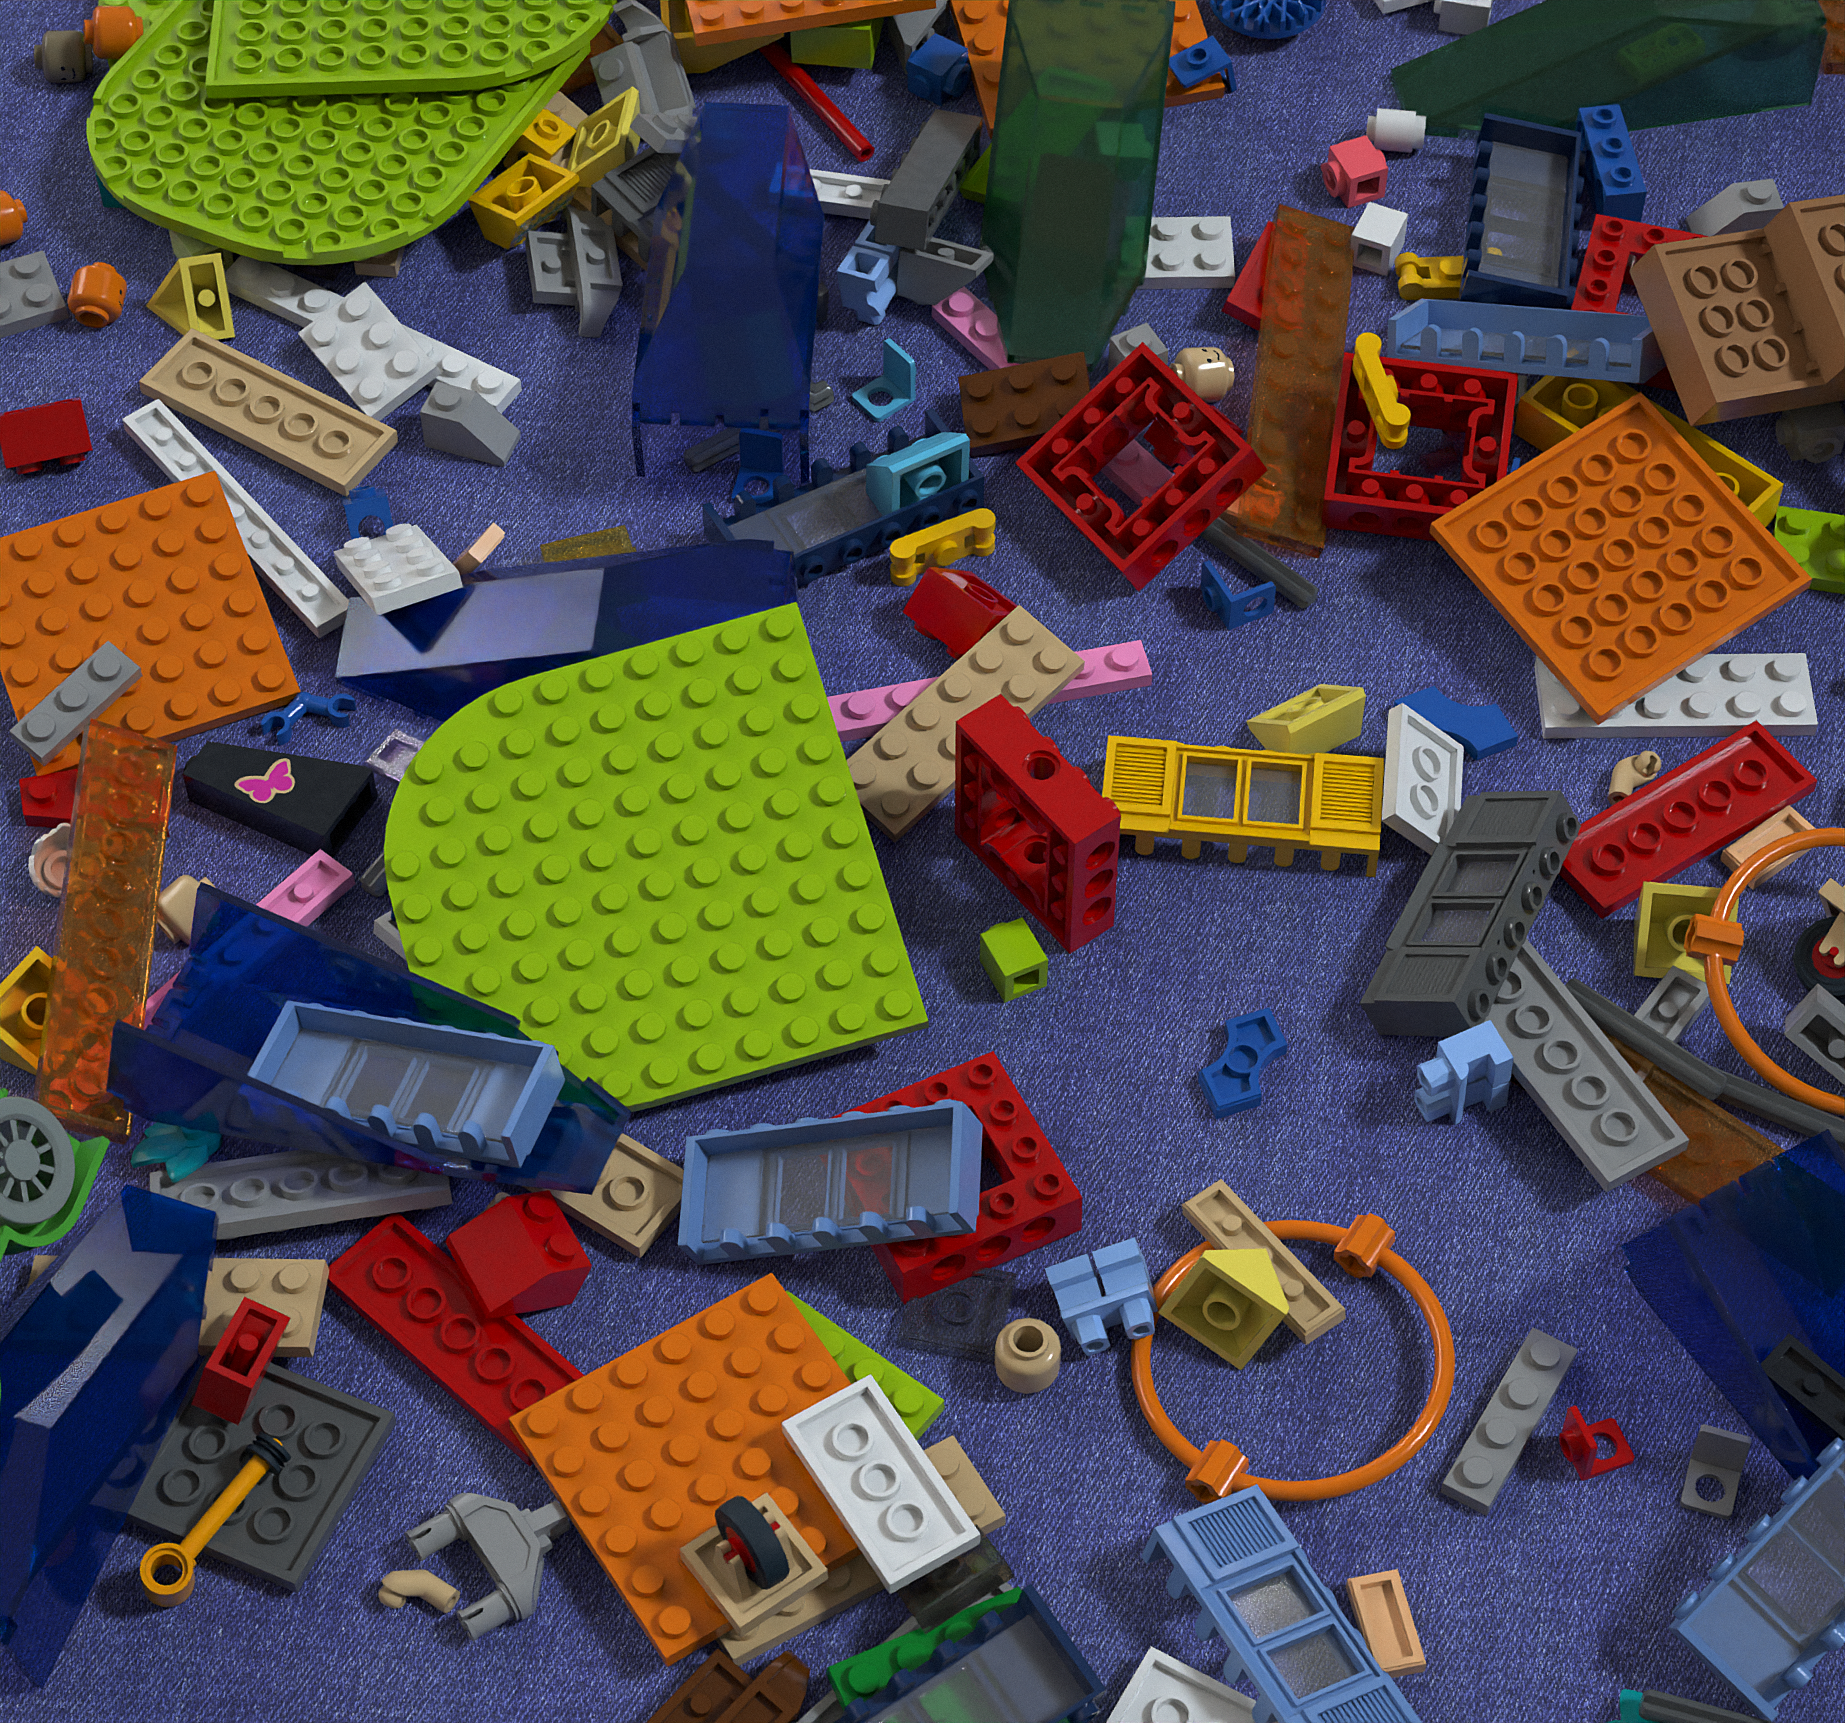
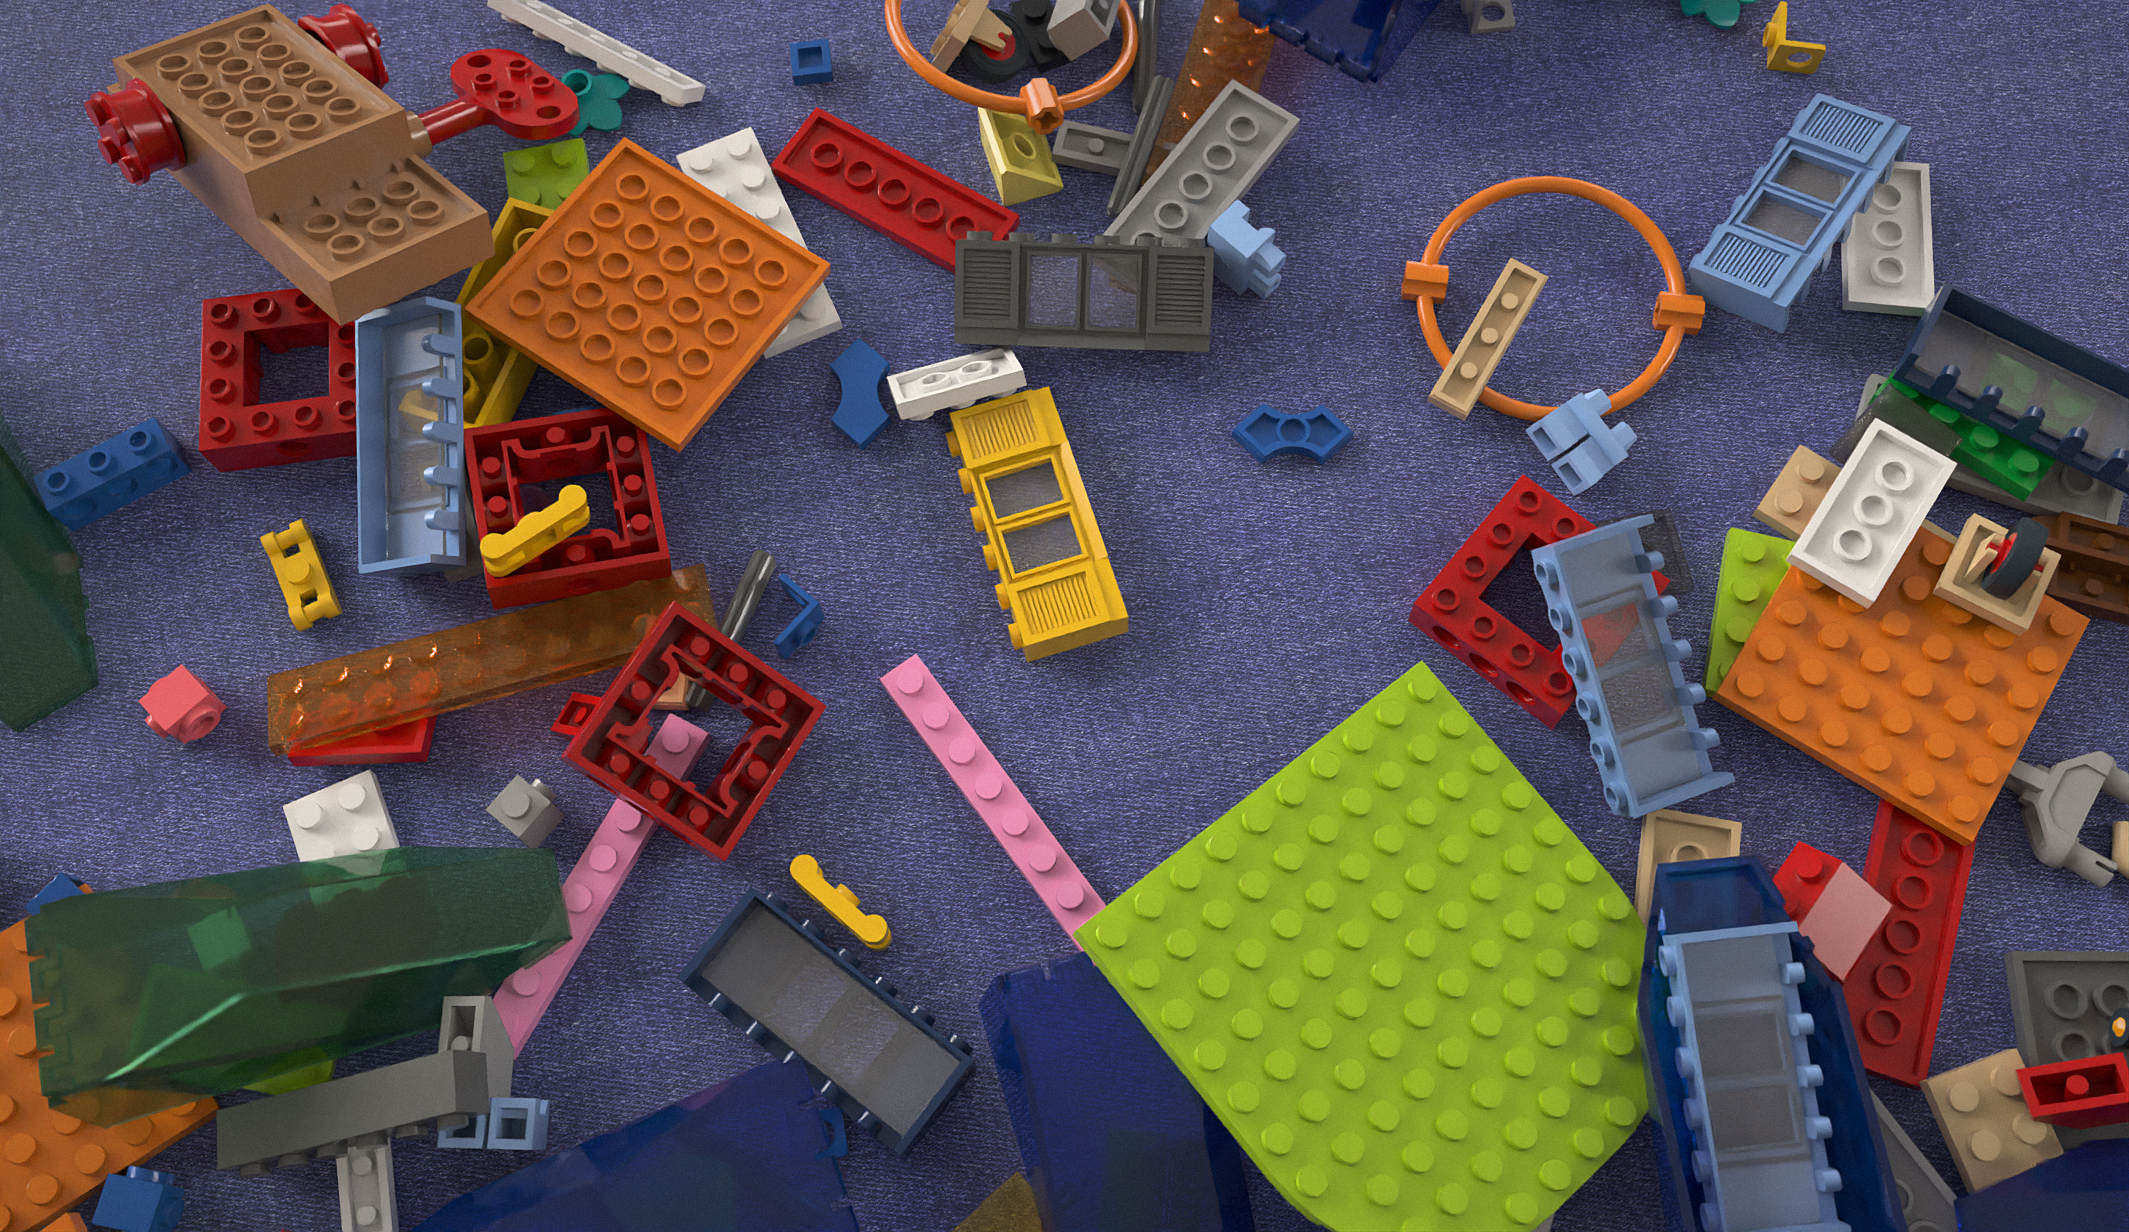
camera: 110 degrees left, 15 degrees up
(897, 380) = (626, 1046): medium azure bracket -> none
(913, 756) = (1052, 792): tan plate -> none
(918, 471) = (775, 950): medium azure slope -> none
(956, 608) = (915, 843): red slope -> none
(1013, 959) = (1289, 643): lime brick -> none
(1020, 402) = (624, 895): reddish brown plate -> none
(1027, 1355) = (1667, 474): tan head -> none
(1030, 806) = (1177, 656): red brick -> none
(1205, 372) = (521, 745): tan head -> none
(1229, 1302) = (1544, 338): light yellow slope -> none
(1312, 720) = (915, 503): light yellow slope -> none
(1378, 238) = (273, 648): white brick -> none
(1386, 1622) = (1722, 171): light nougat tile -> none
(1396, 130) = (110, 687): white brick -> none
(1509, 1421) = (1513, 146): light grey plate -> none
(1523, 215) = (219, 520): window -> none
(1580, 1447) = (1518, 89): red bracket -> none
(1632, 773) = (860, 247): tan arm -> none
(1737, 209) = (151, 348): light grey slope -> none
(1778, 826) = (892, 127): light nougat tile -> none

